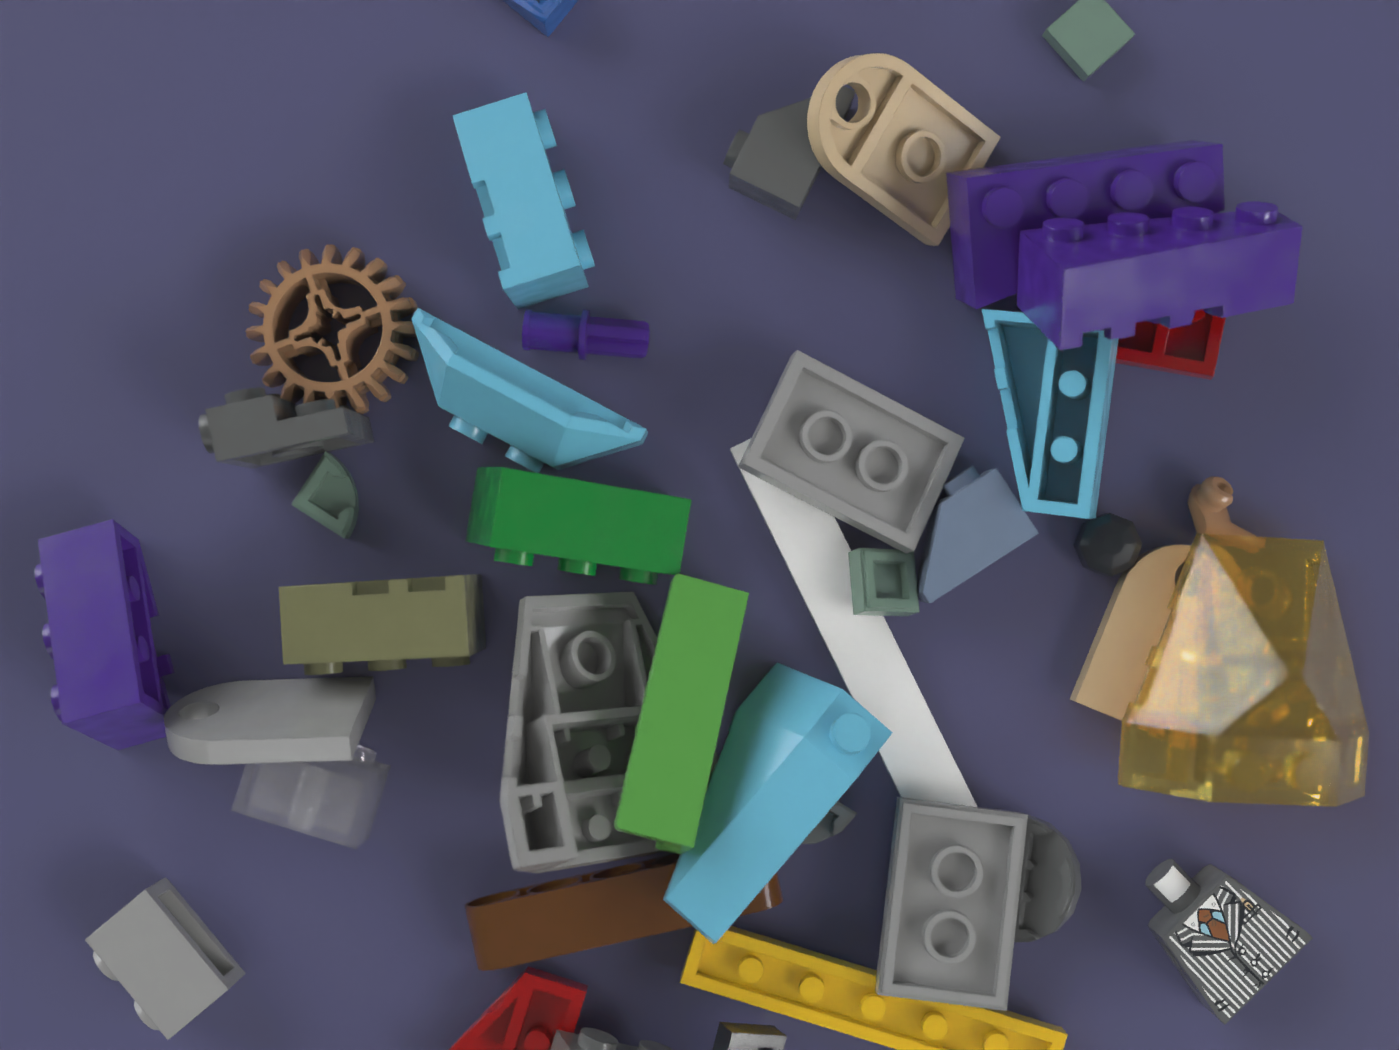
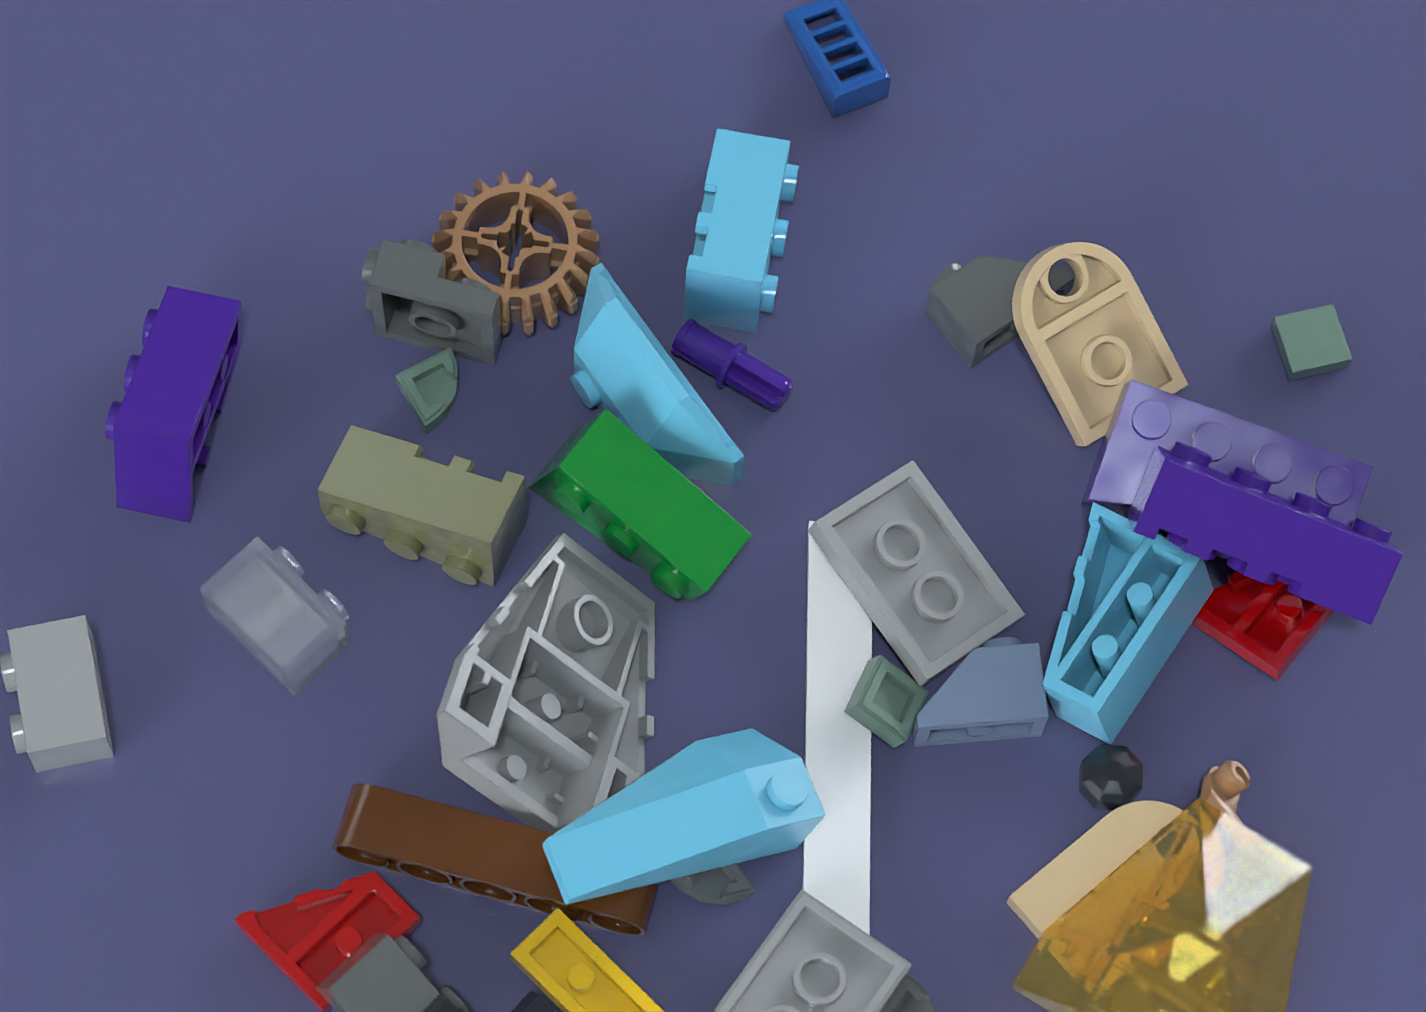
camera: 25 degrees right, 20 degrees down
(271, 721) = (280, 531): light grey tile -> none
(681, 713) = (646, 697): bright green panel -> none

